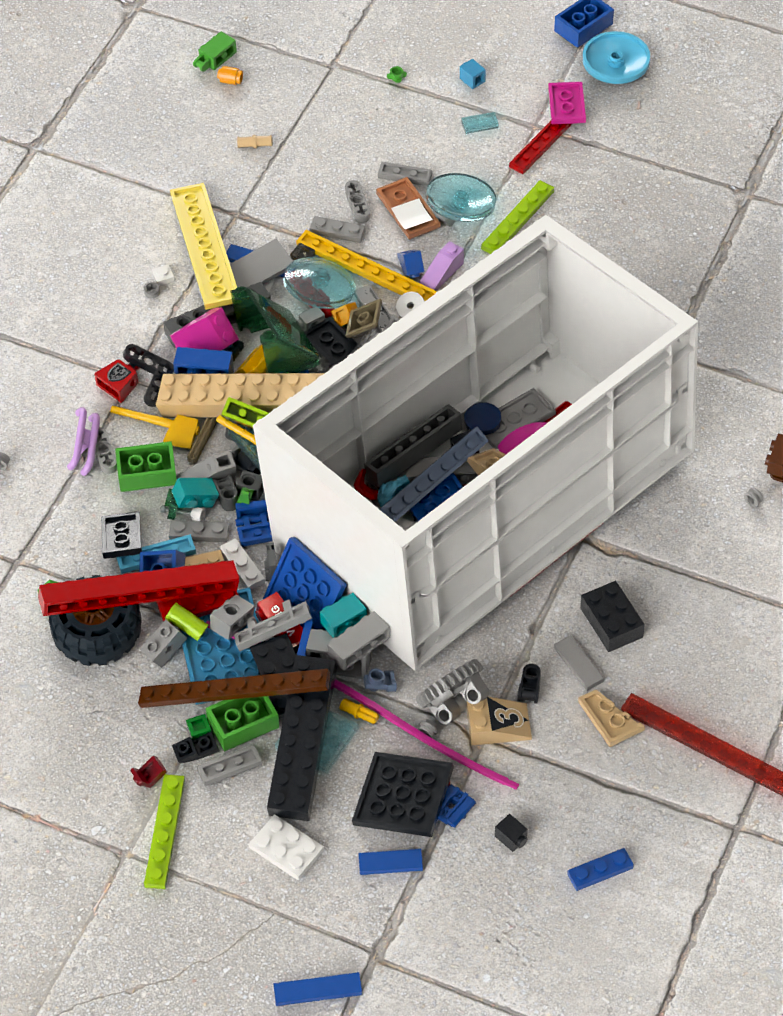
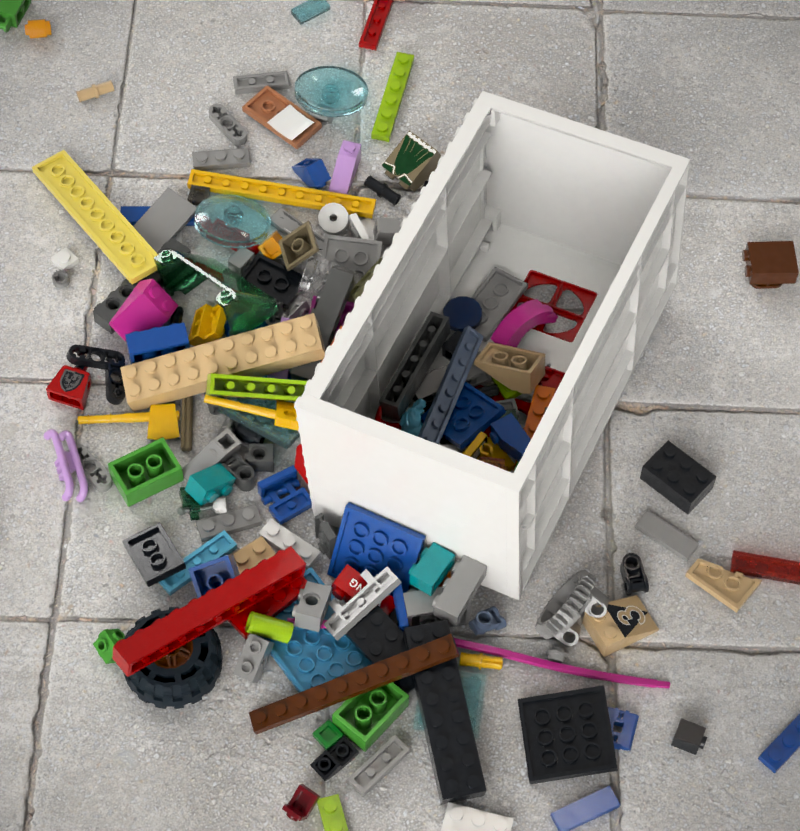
camera: 25 degrees left, 5 degrees up
(245, 495) = (262, 471): bright green slope -> none
(753, 497) = (749, 312): light grey bush -> none

